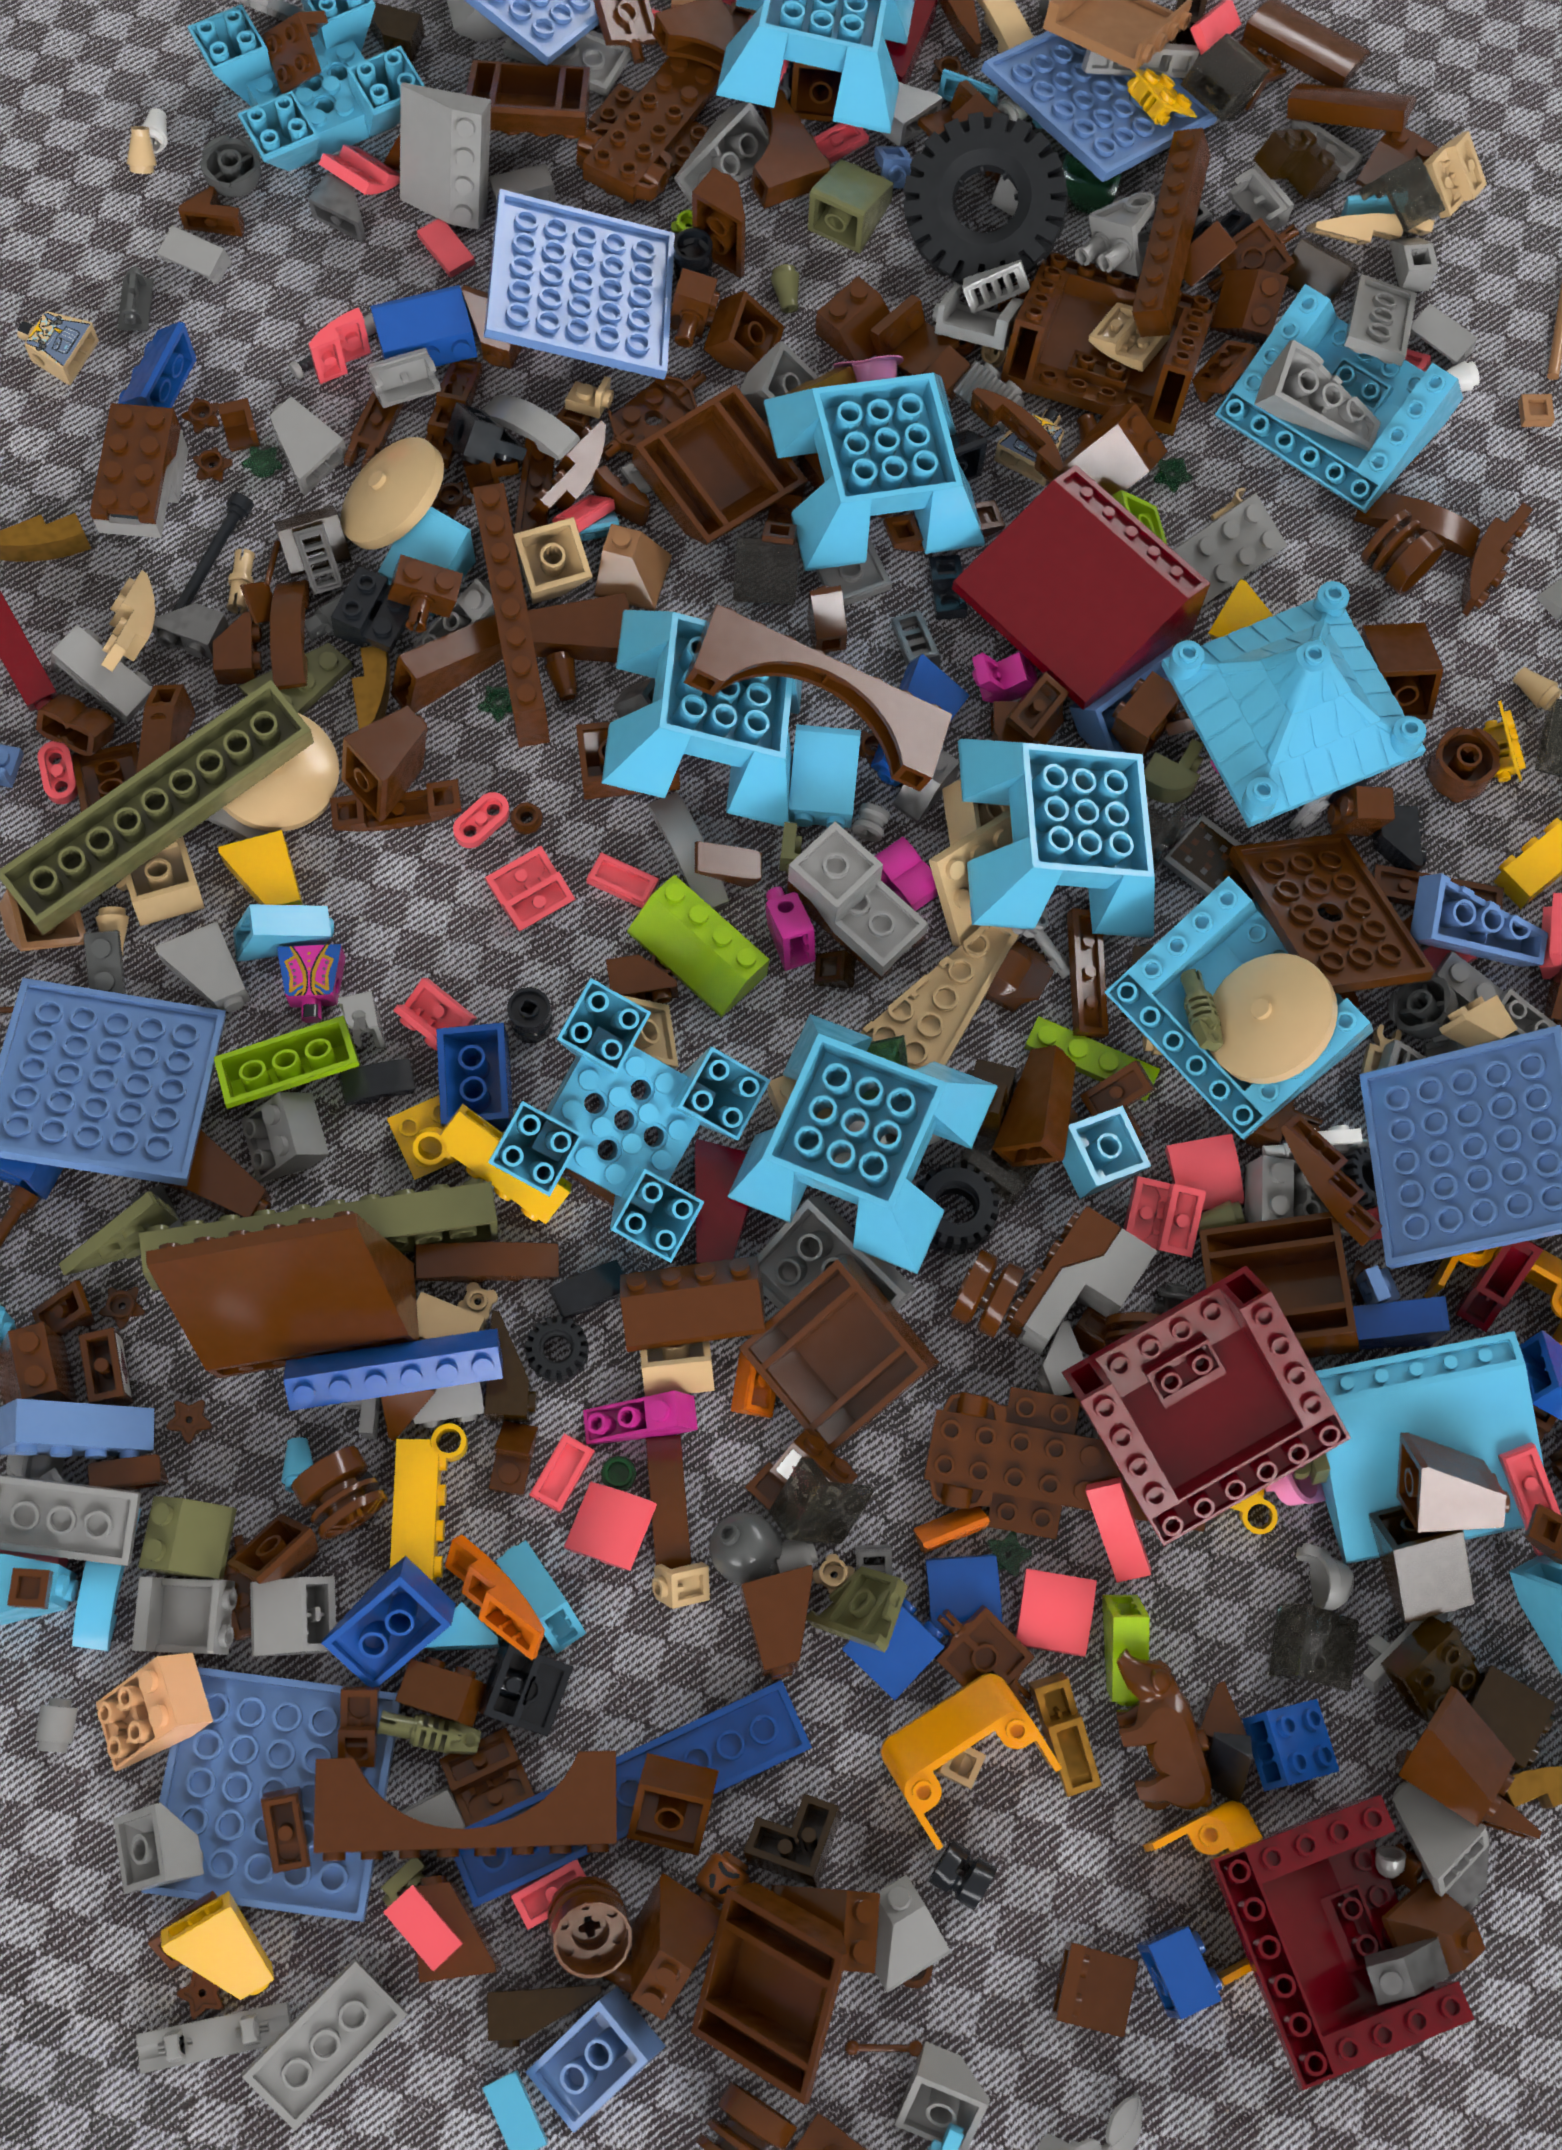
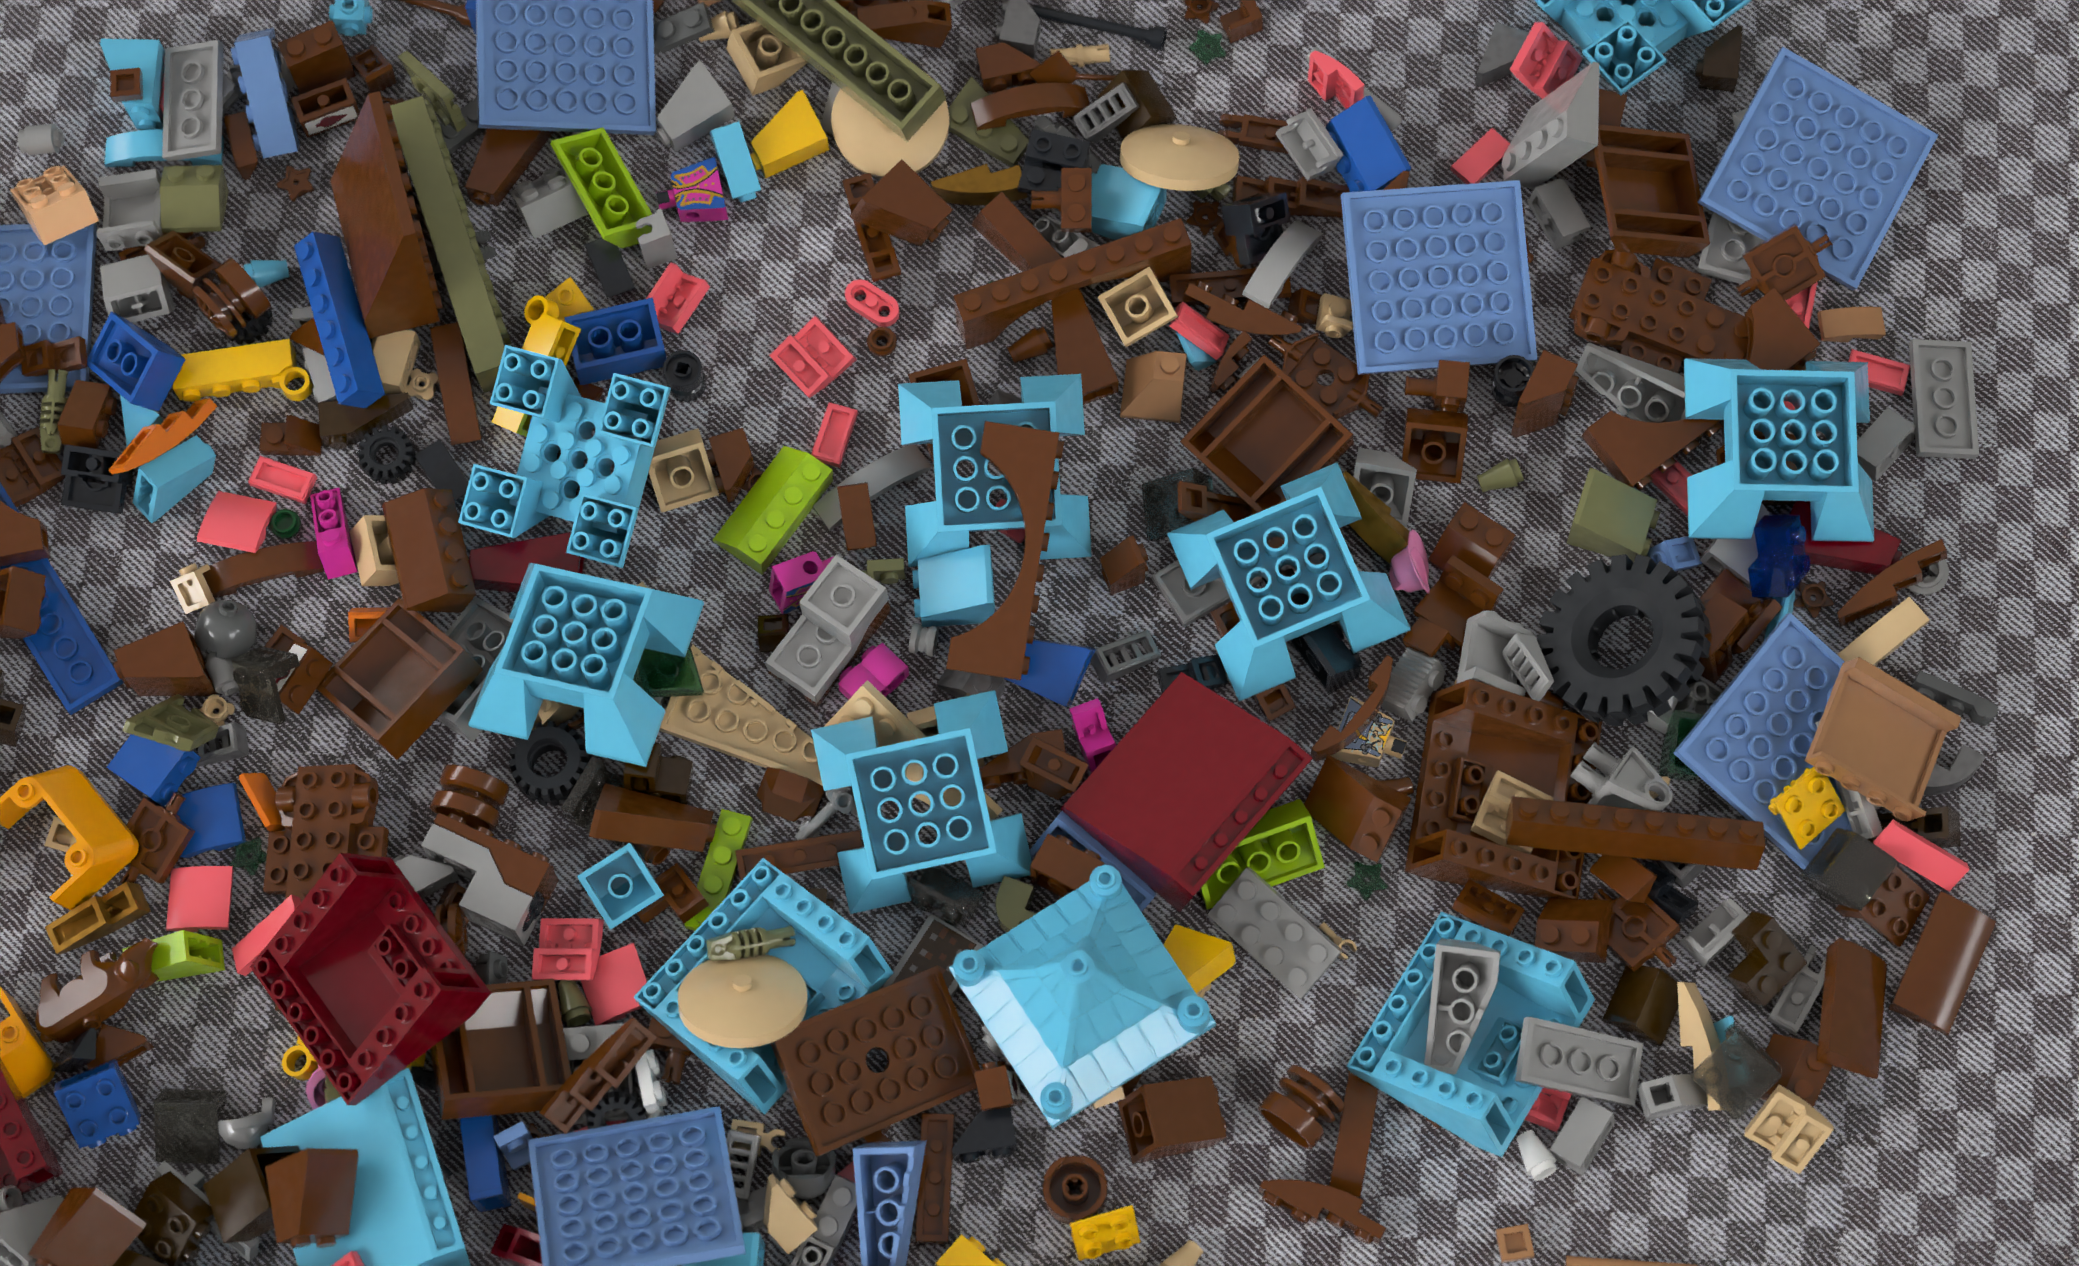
camera: 90 degrees right, 0 degrees up
(307, 443) = (1231, 77): light grey slope -> none
(926, 65) = (1780, 557): none -> clear blue brick

